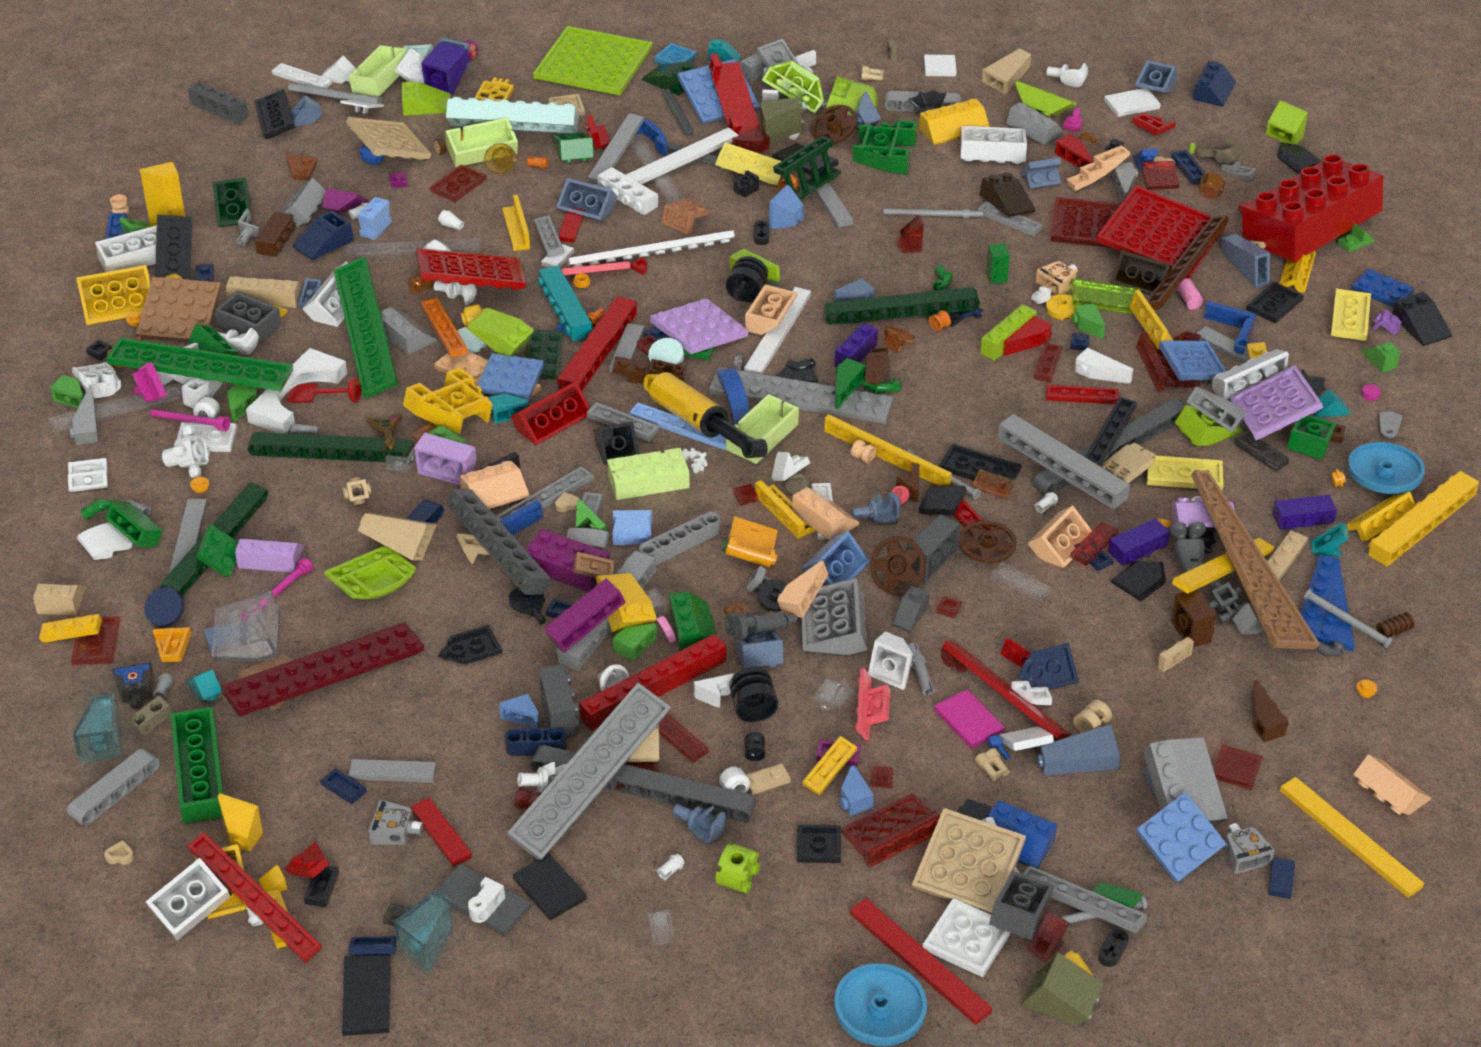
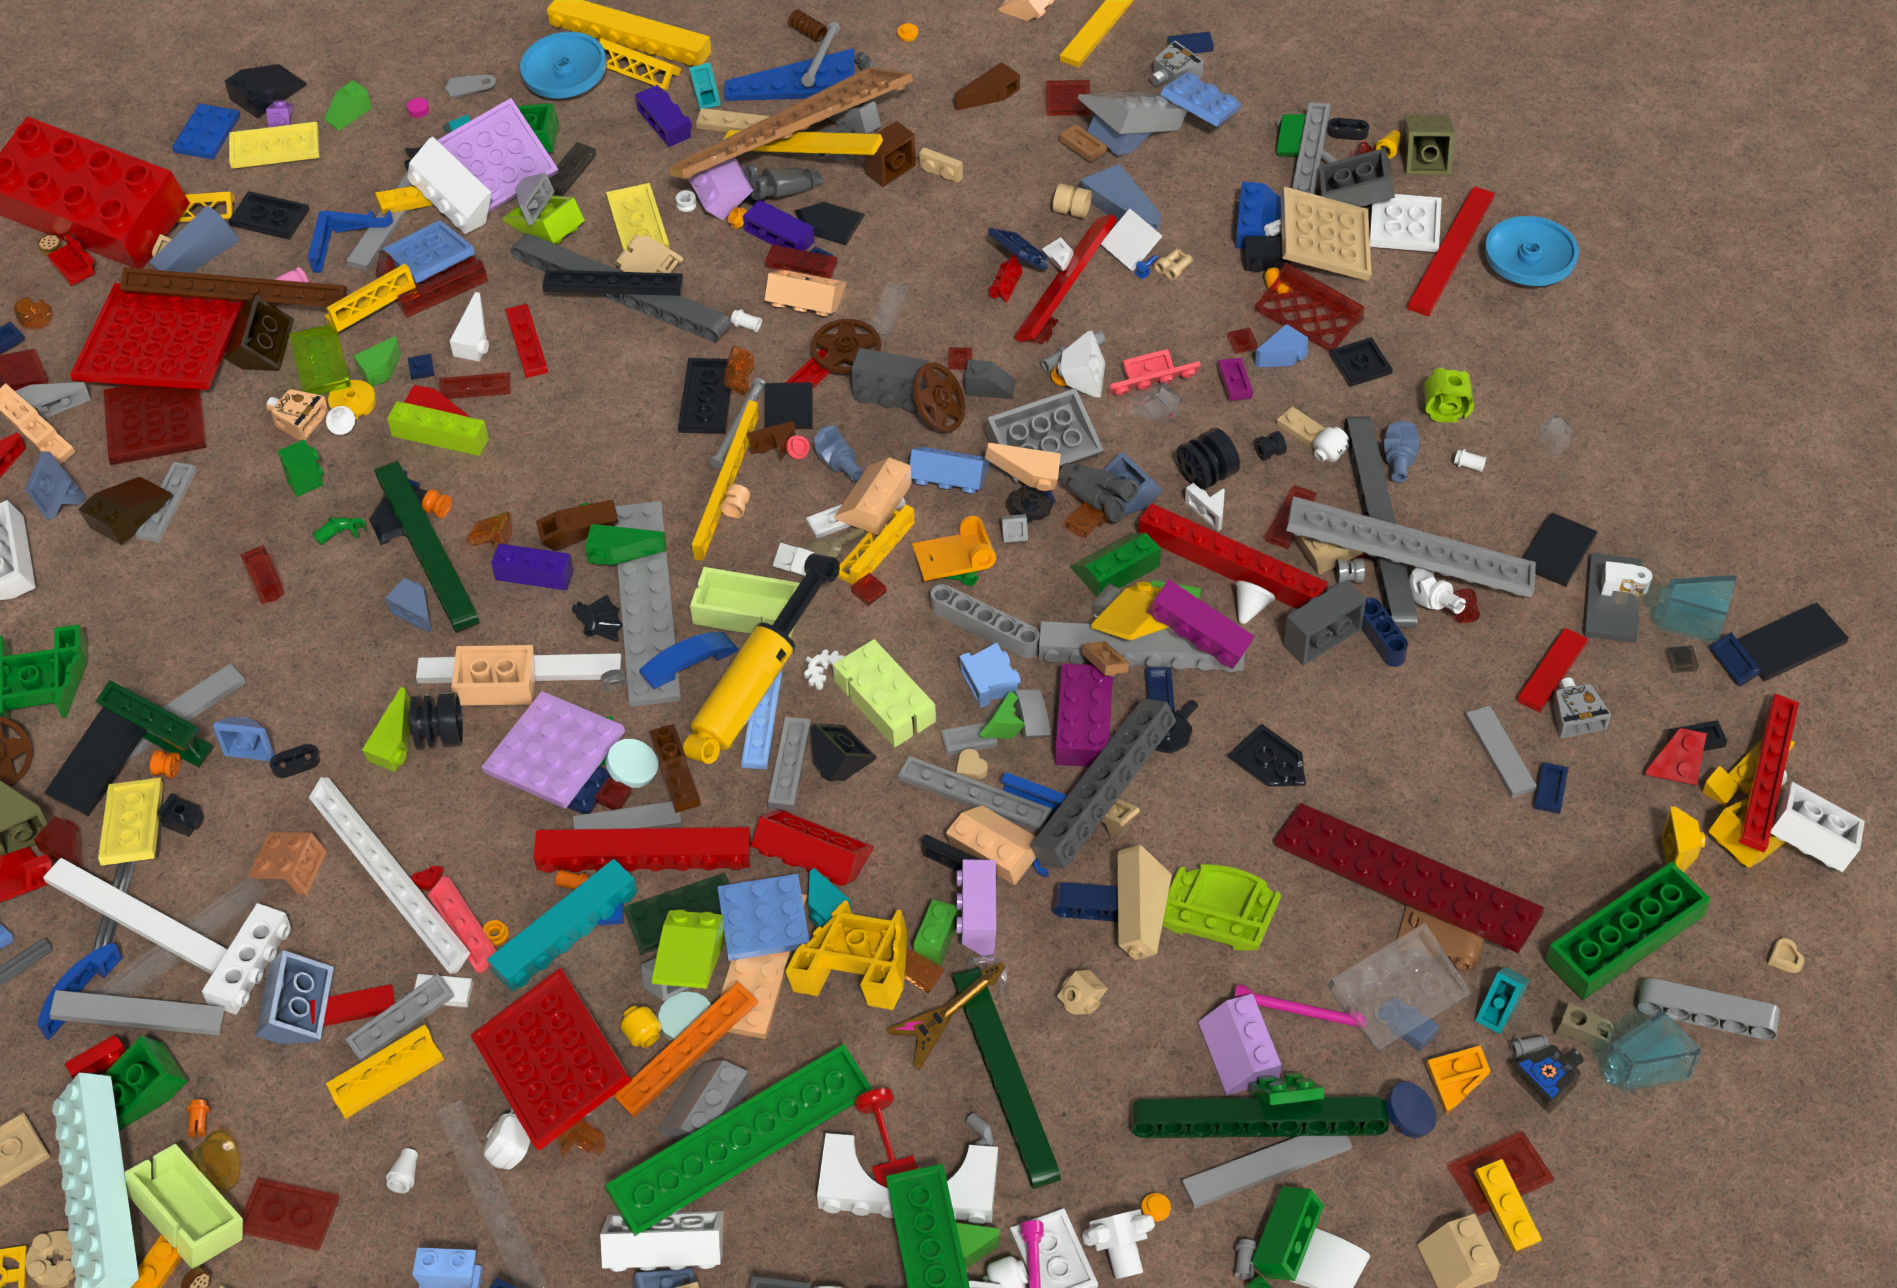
camera: 110 degrees left, 10 degrees up
(520, 711) = (1344, 663): medium blue slope -> none
(666, 628) = (1144, 576): bright pink tile -> none
(829, 765) = (1260, 376): yellow tile -> none
(965, 213) = (172, 550): light grey bar -> none
(969, 718) = (1119, 298): dark pink tile -> none
(1063, 461) = (688, 304): light grey brick -> none
(1338, 478) = (591, 102): light orange plate -> none

